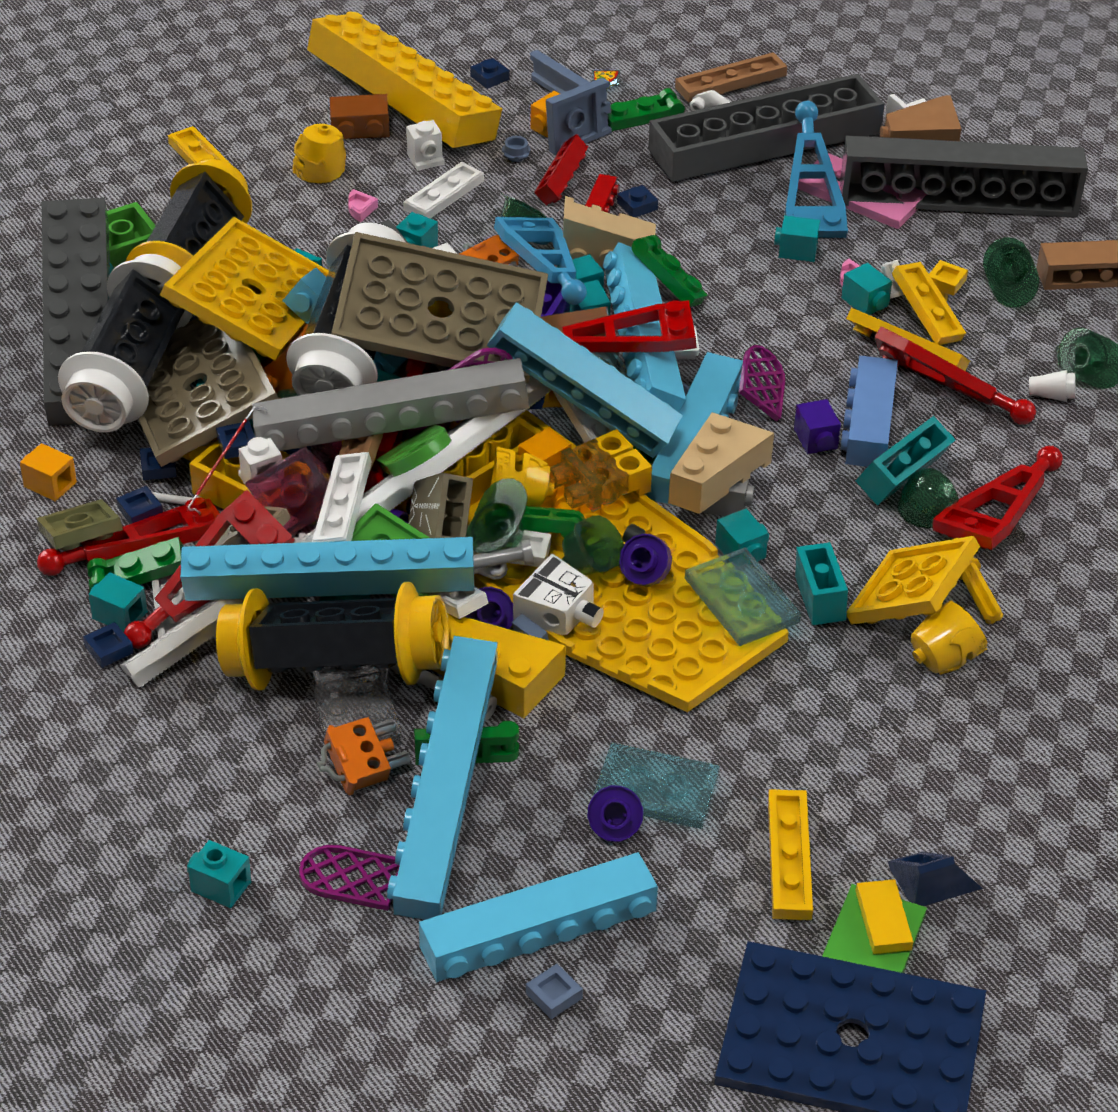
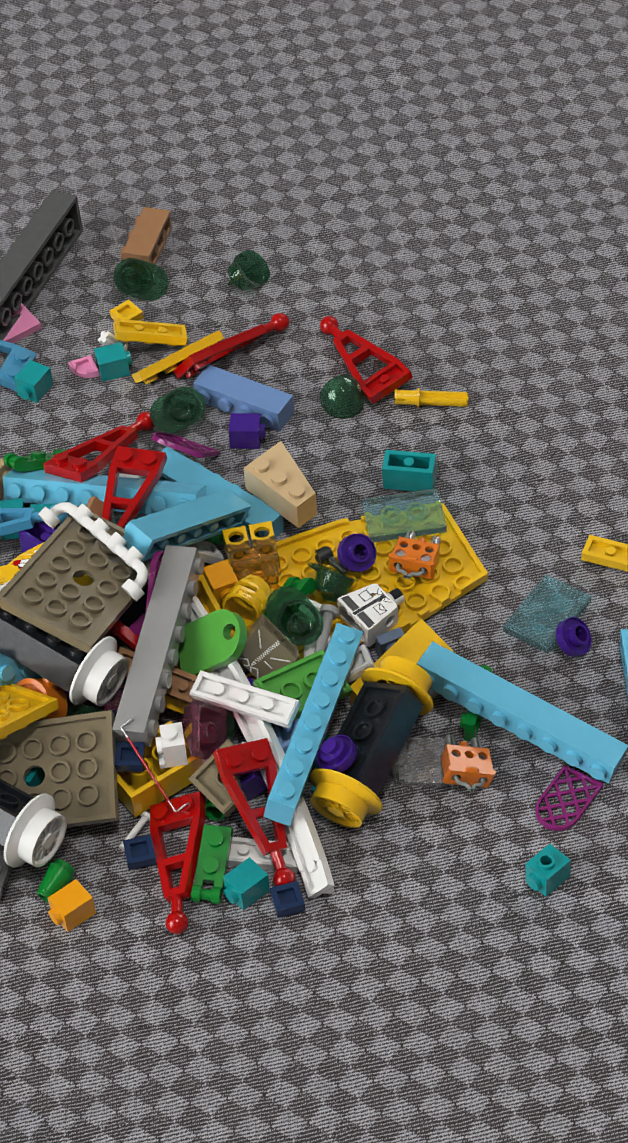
camera: 65 degrees left, 5 degrees up
(79, 524) = (149, 892): olive plate -> none
(86, 451) = (56, 877): none -> green cone
(151, 468) = (93, 834): dark blue plate -> none
(281, 596) = (337, 753): none -> dark purple plate
(523, 270) = (99, 530): none -> white bar
(662, 283) = (73, 467): none -> red plate
(670, 619) = (415, 557): none -> orange piece
(742, 531) = (341, 502): teal brick -> none
(809, 355) = (177, 409): none -> clear green piece
(904, 459) = (309, 392): teal brick -> none
(913, 580) = (433, 420): yellow plate -> none
(947, 639) = (486, 423): yellow helmet -> none
(1054, 386) = (263, 296): white cone -> none

